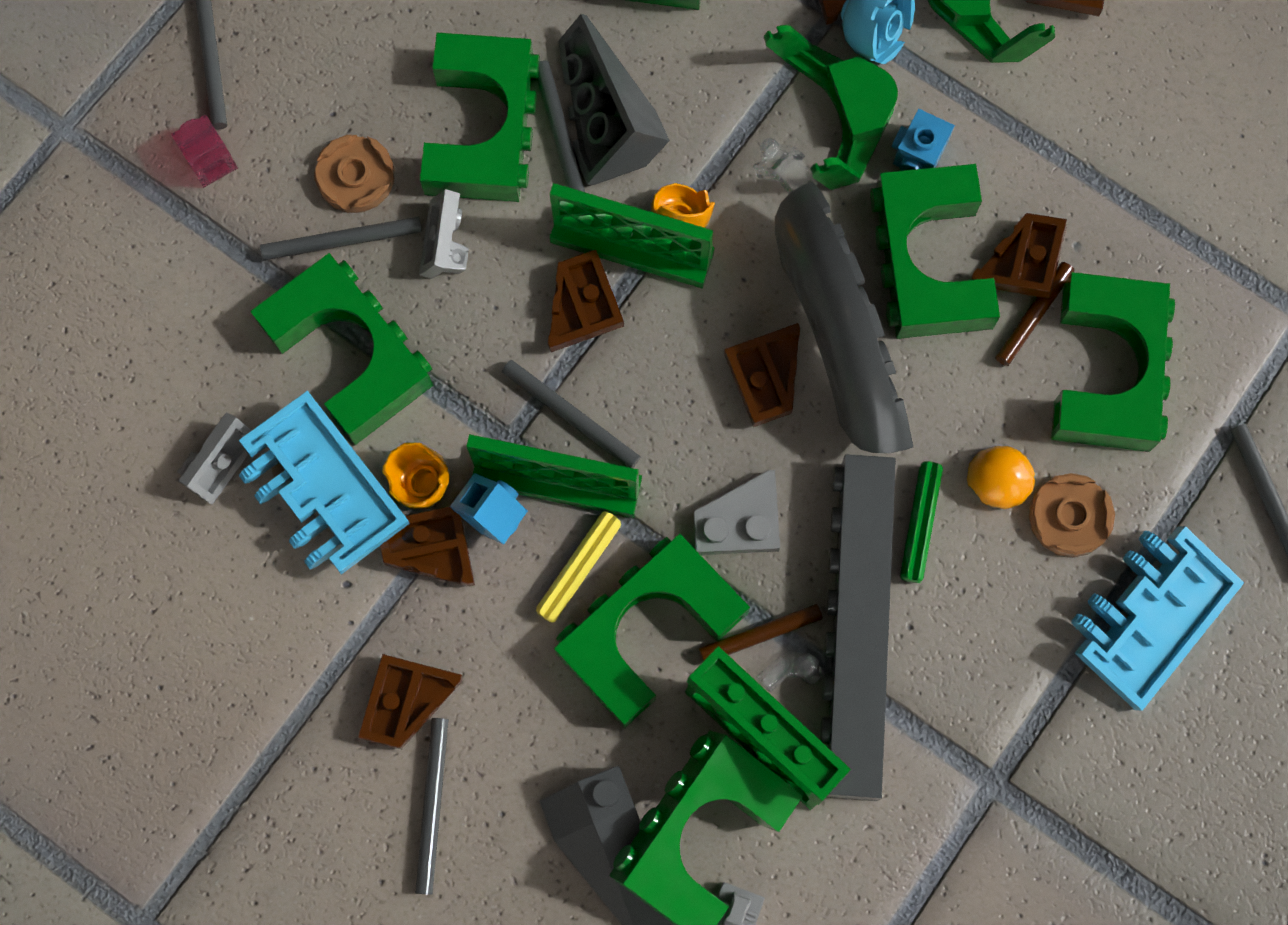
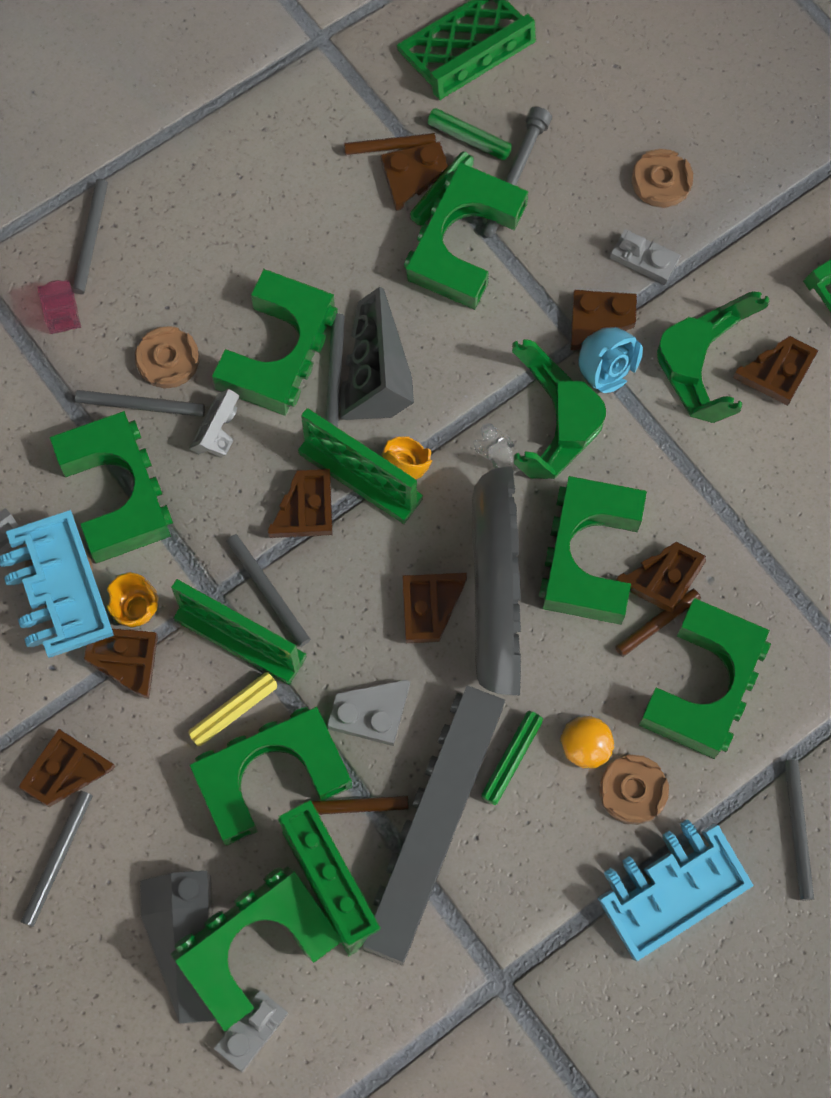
camera: 15 degrees right, 5 degrees down
(490, 507) = (179, 642): dark azure brick -> none
(790, 665) = (369, 837): clear arm -> none
(922, 142) = (612, 462): dark azure brick -> none

